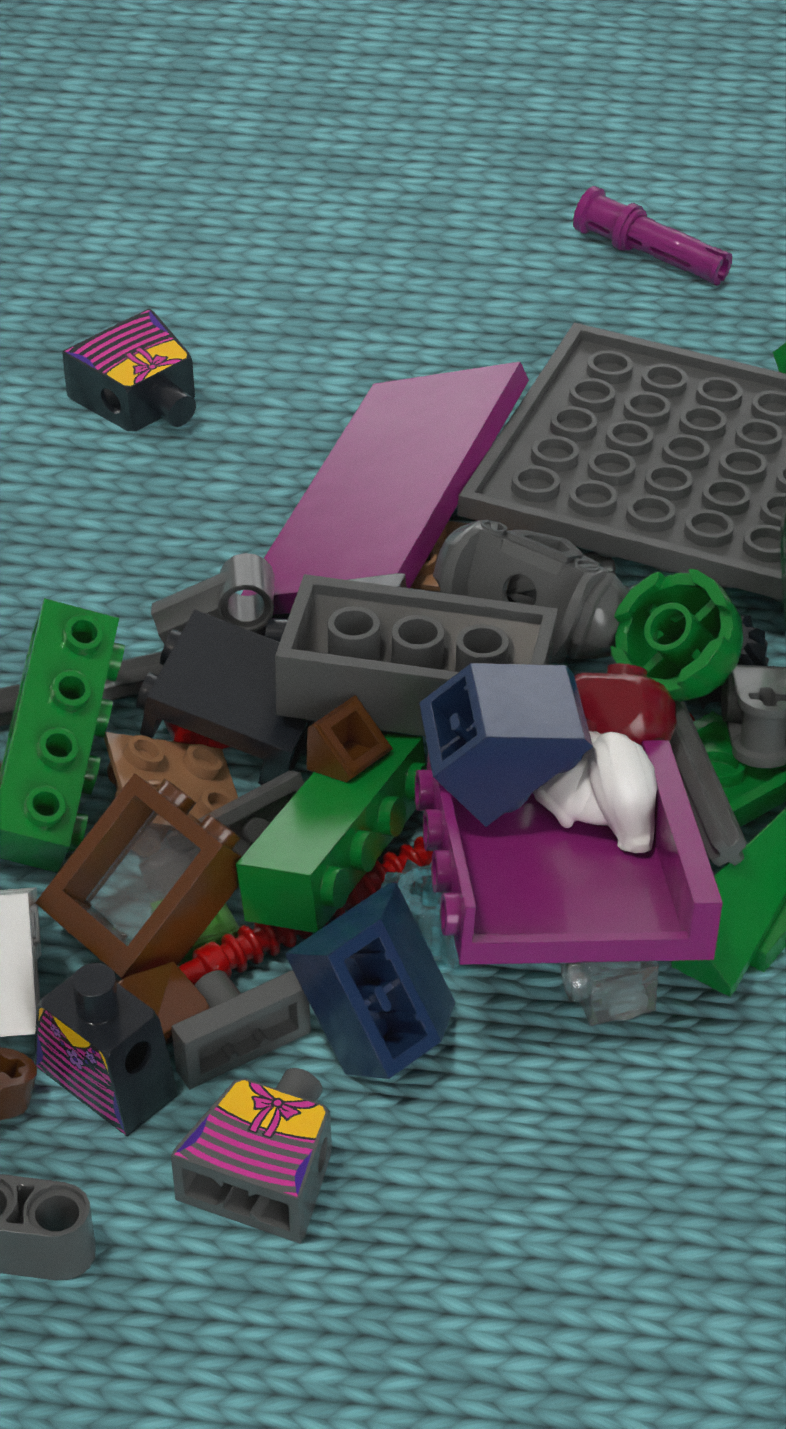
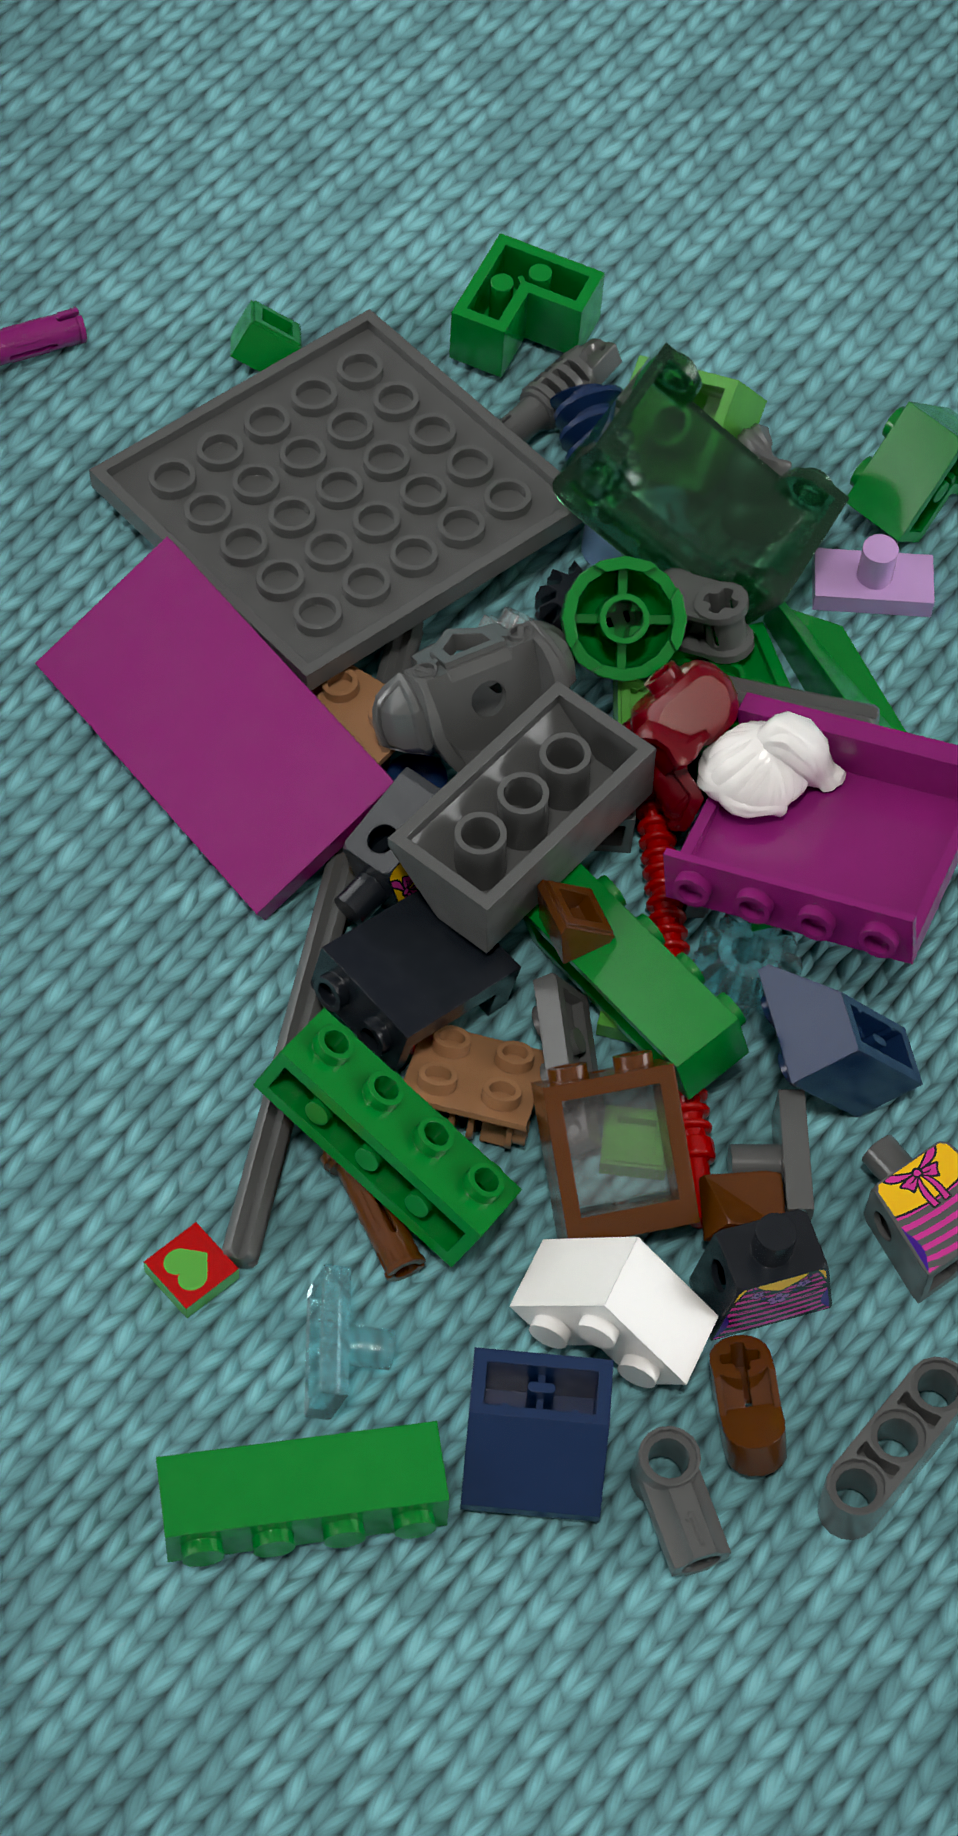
camera: 65 degrees left, 15 degrees up
(218, 597) = (288, 913): dark grey piece -> none
(503, 733) = (708, 791): dark blue slope -> none

